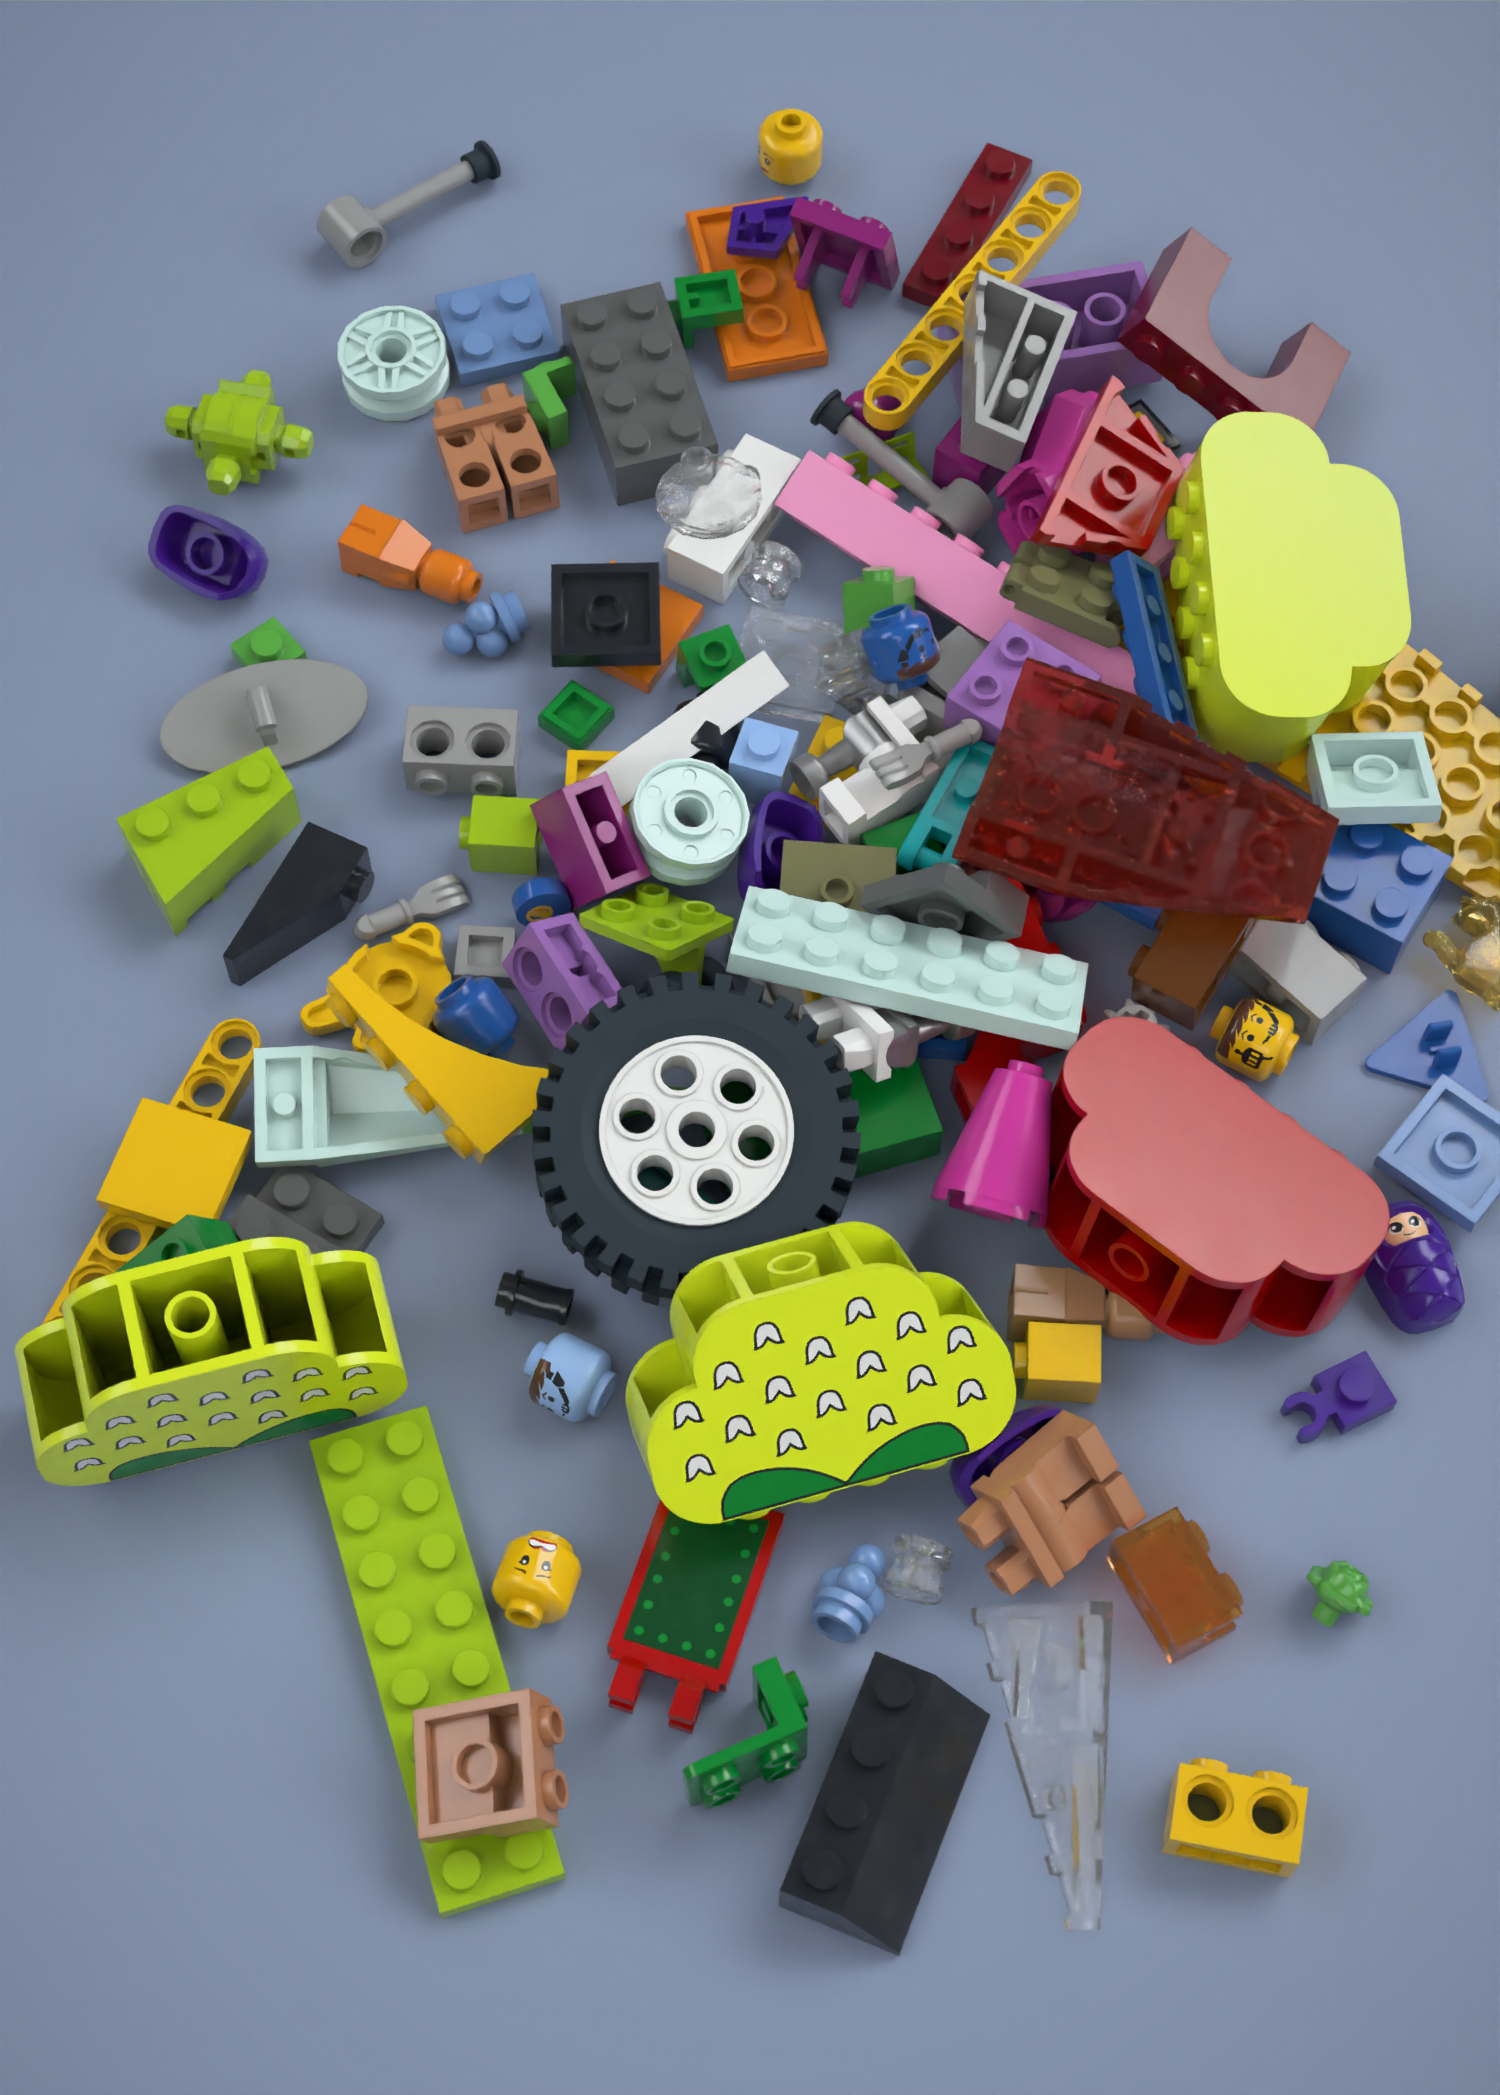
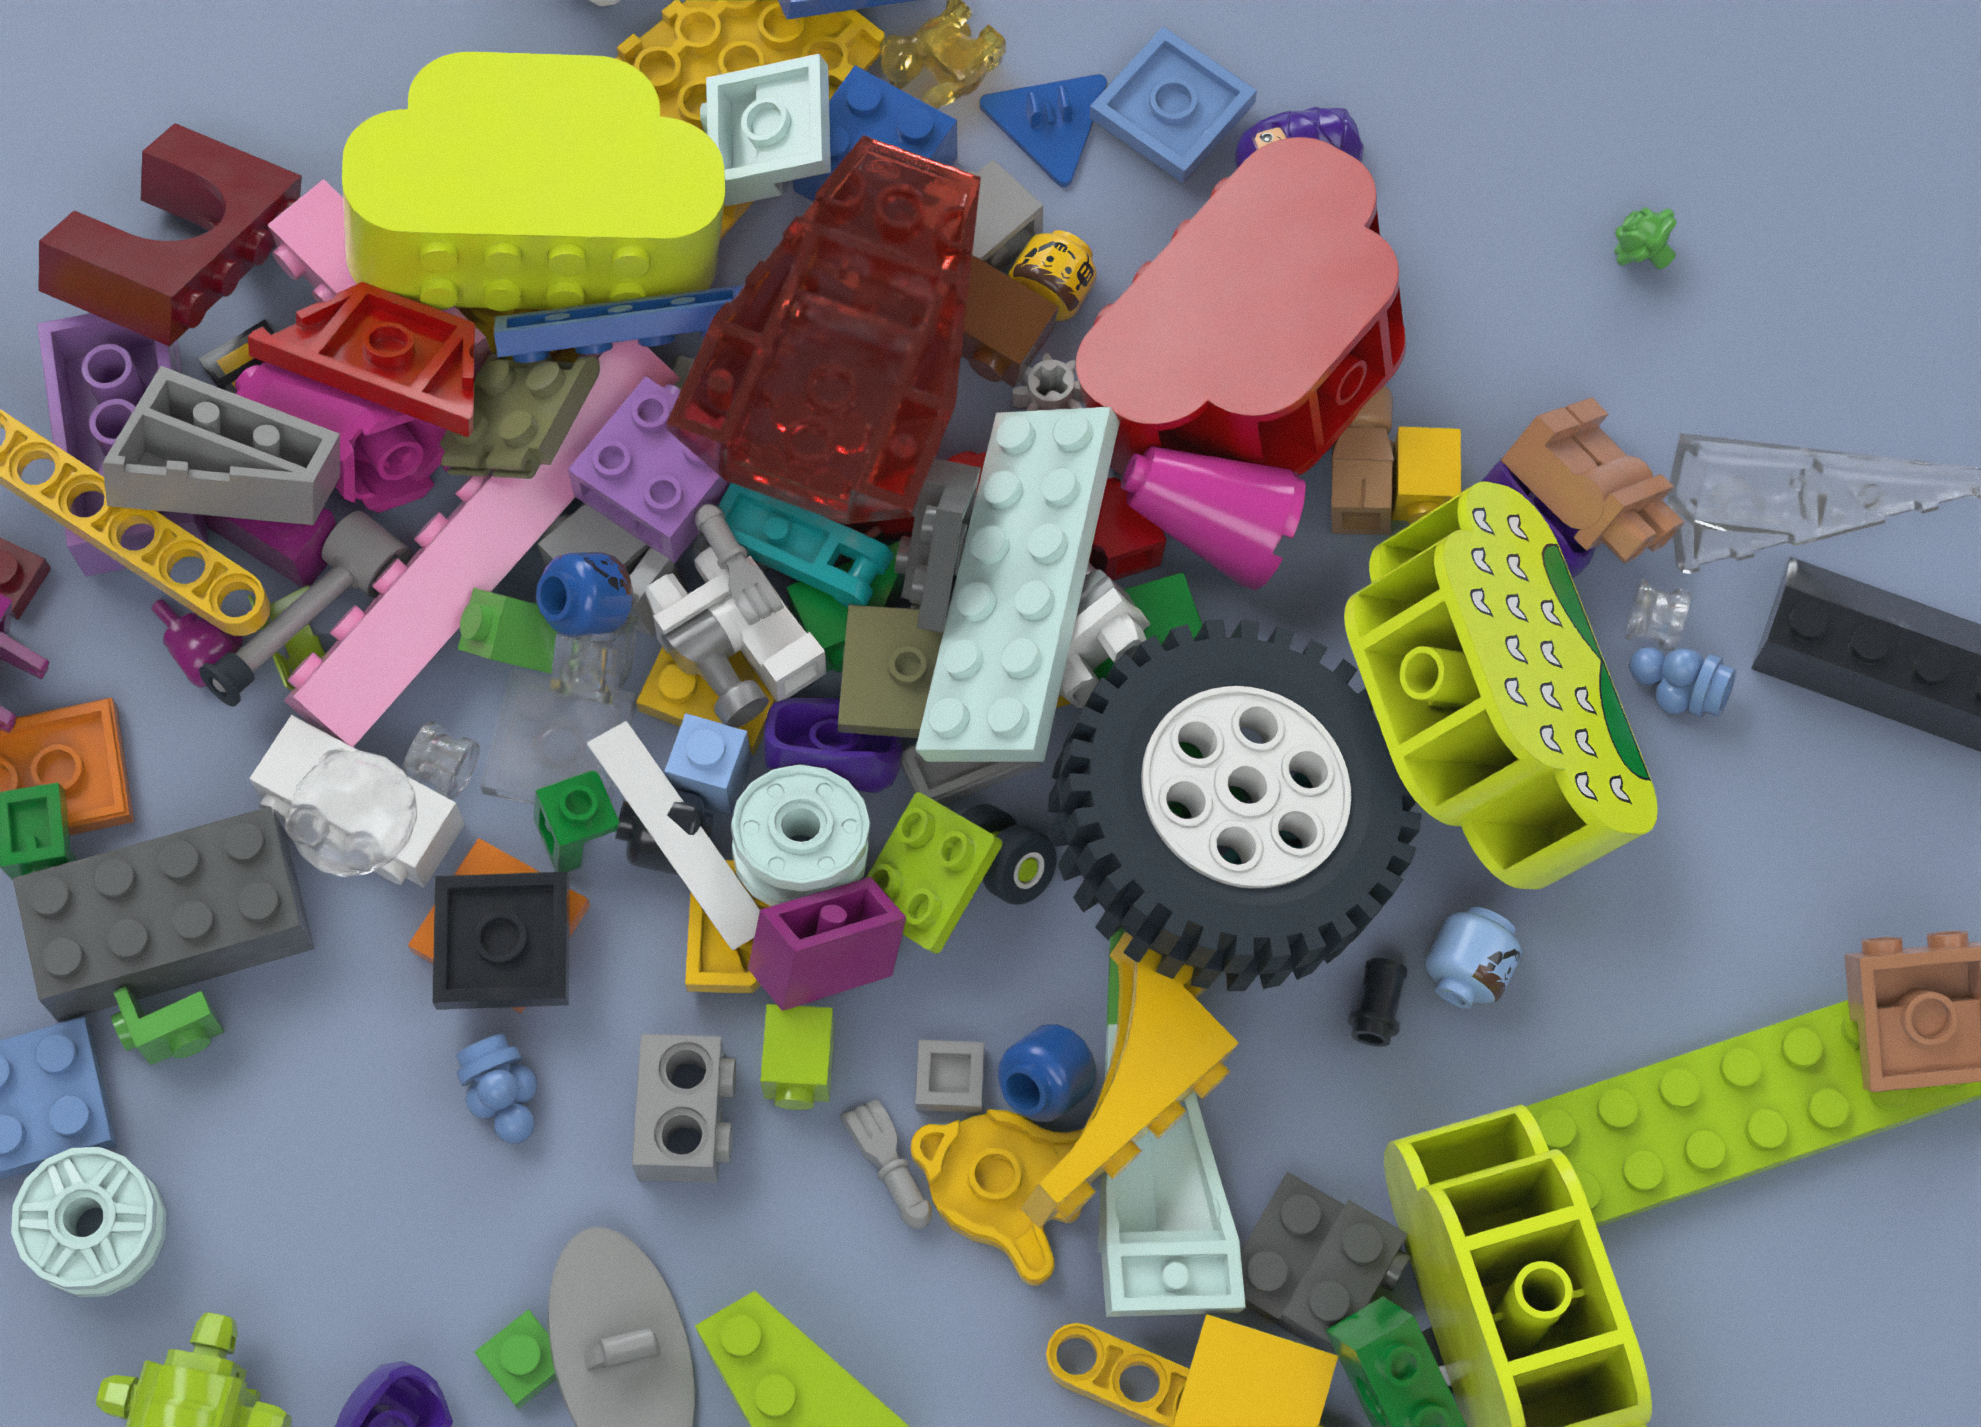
camera: 90 degrees left, 5 degrees up
(302, 901) = (875, 1277): black slope -> none
(404, 559) = (395, 1193): orange piece -> none
(491, 437) = (246, 1091): nougat hips -> none
(536, 1579) = (1701, 985): yellow head -> none
(540, 900) = (886, 1010): blue tile -> none
(560, 974) = (1005, 970): medium lavender brick -> none
(576, 716) = (624, 985): green tile -> none
(690, 1608) = (1724, 845): tile -> none
(766, 1755) = (1876, 747): green bracket -> none
(1176, 1584) = (1654, 378): clear orange brick -> none
(1234, 1837) = (1887, 341): yellow brick -> none
(1345, 1394) = (1439, 223): dark purple plate -> none

